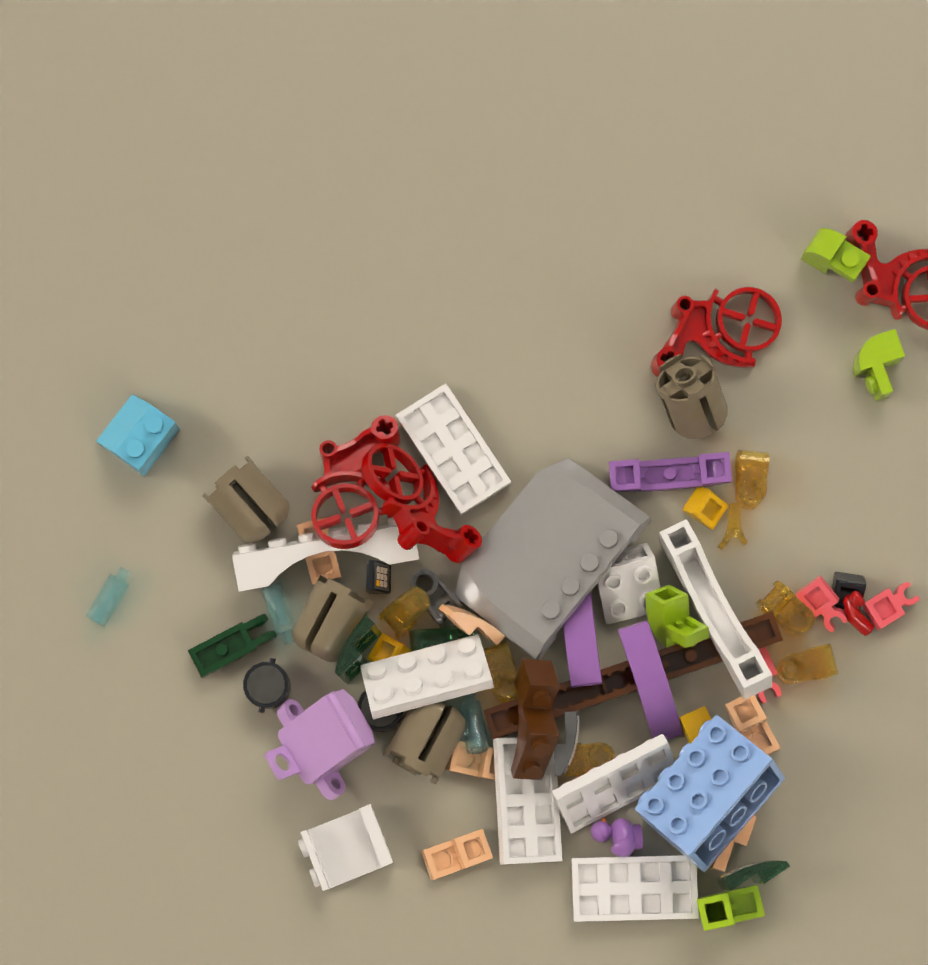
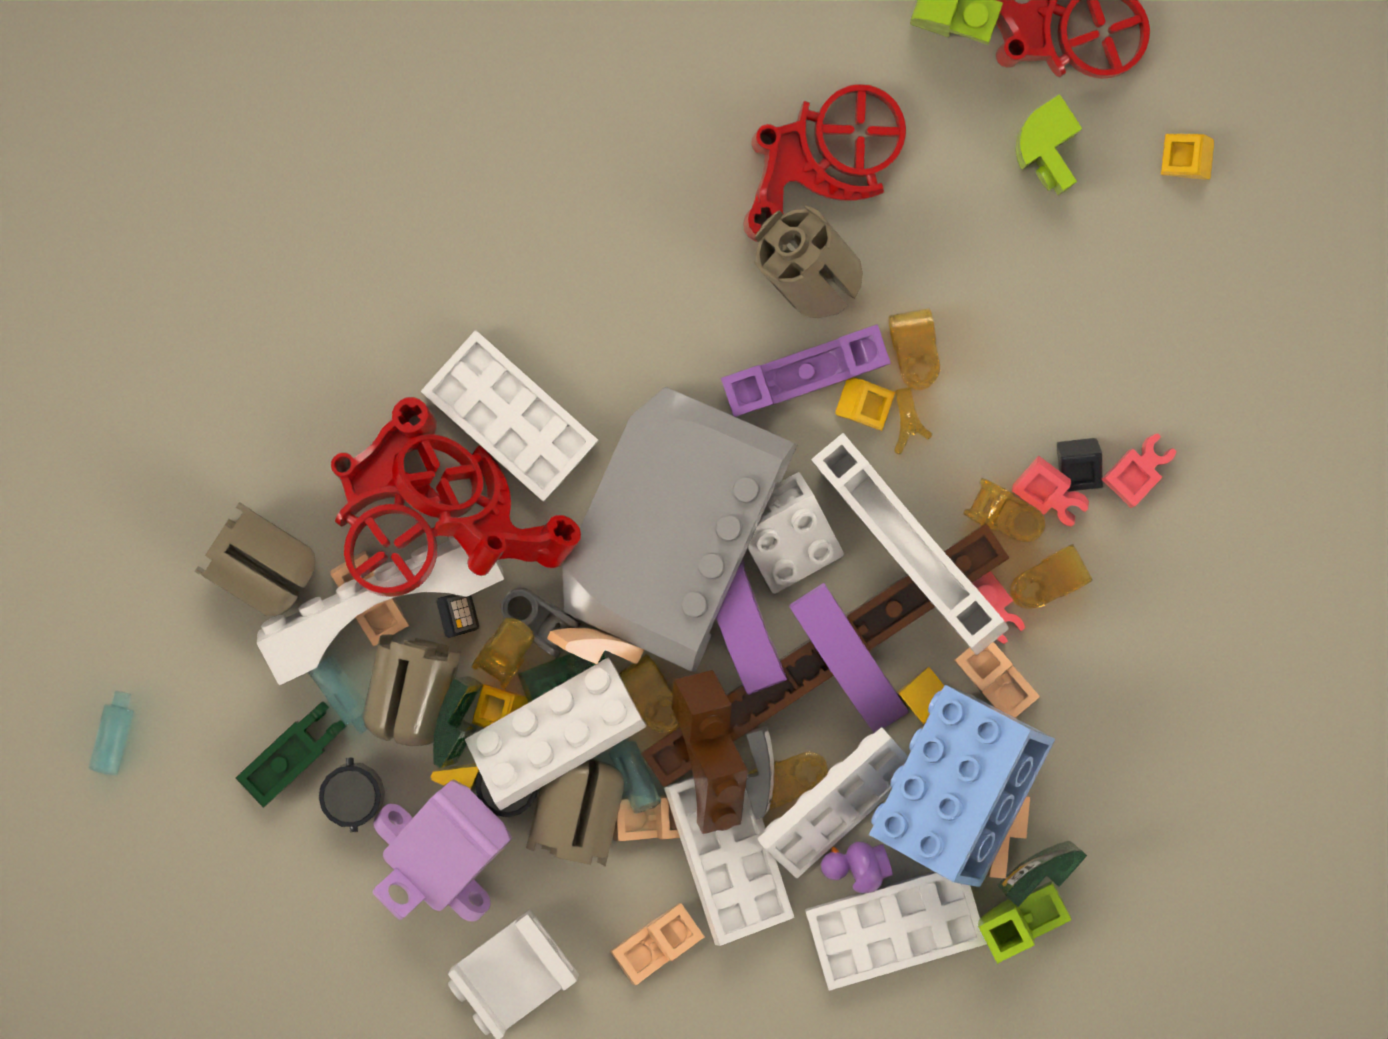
camera: 15 degrees left, 10 degrees up
(138, 434) = (86, 509): medium azure slope -> none
(354, 691) = (464, 774): none -> yellow slope
(670, 619) = (855, 568): lime brick -> none
(855, 617) = (1095, 497): red arm -> none

